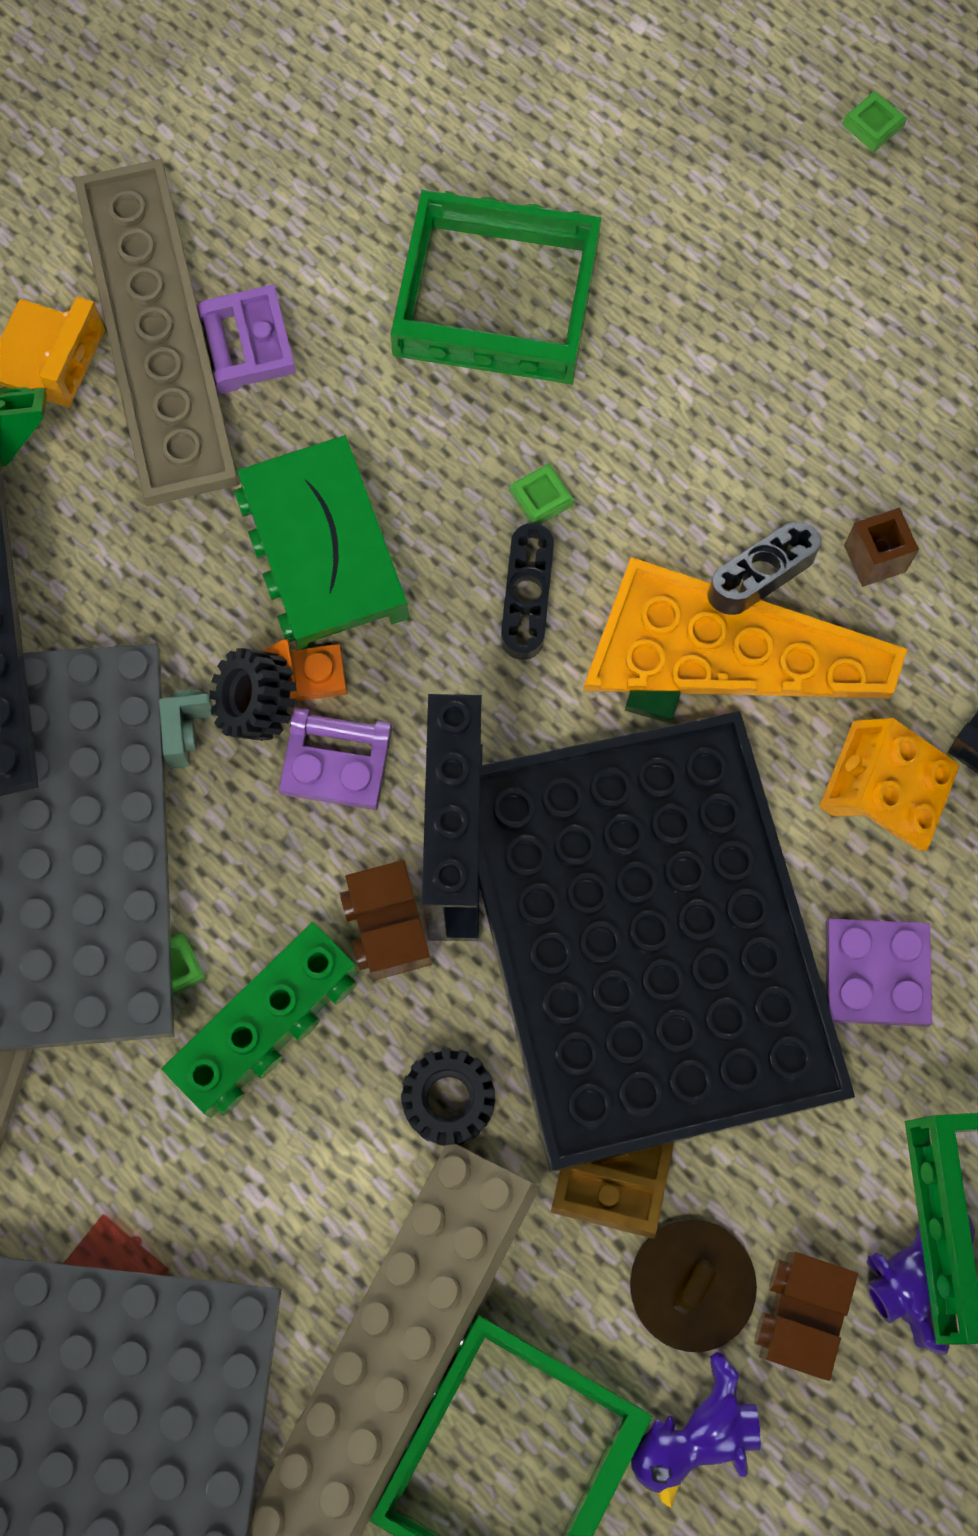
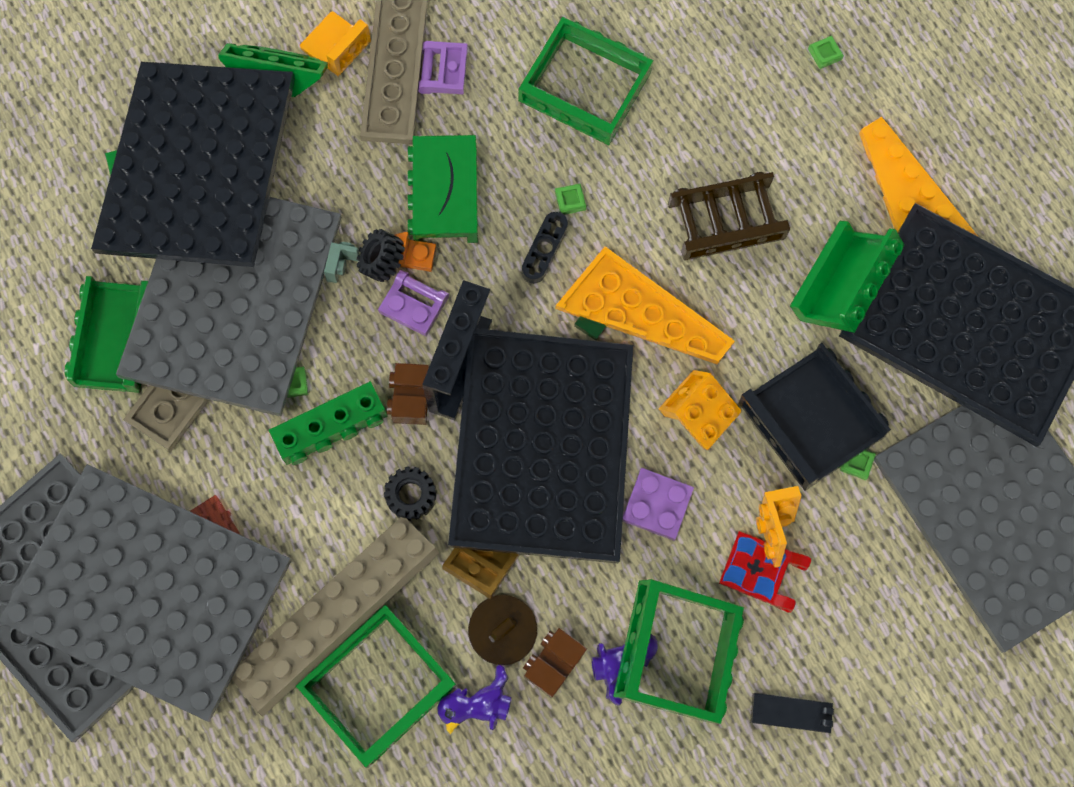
camera: 15 degrees right, 0 degrees up
(756, 584) = (665, 281): black beam -> none
(820, 485) = (722, 240): none -> dark brown fence
(881, 547) = (739, 282): reddish brown brick -> none

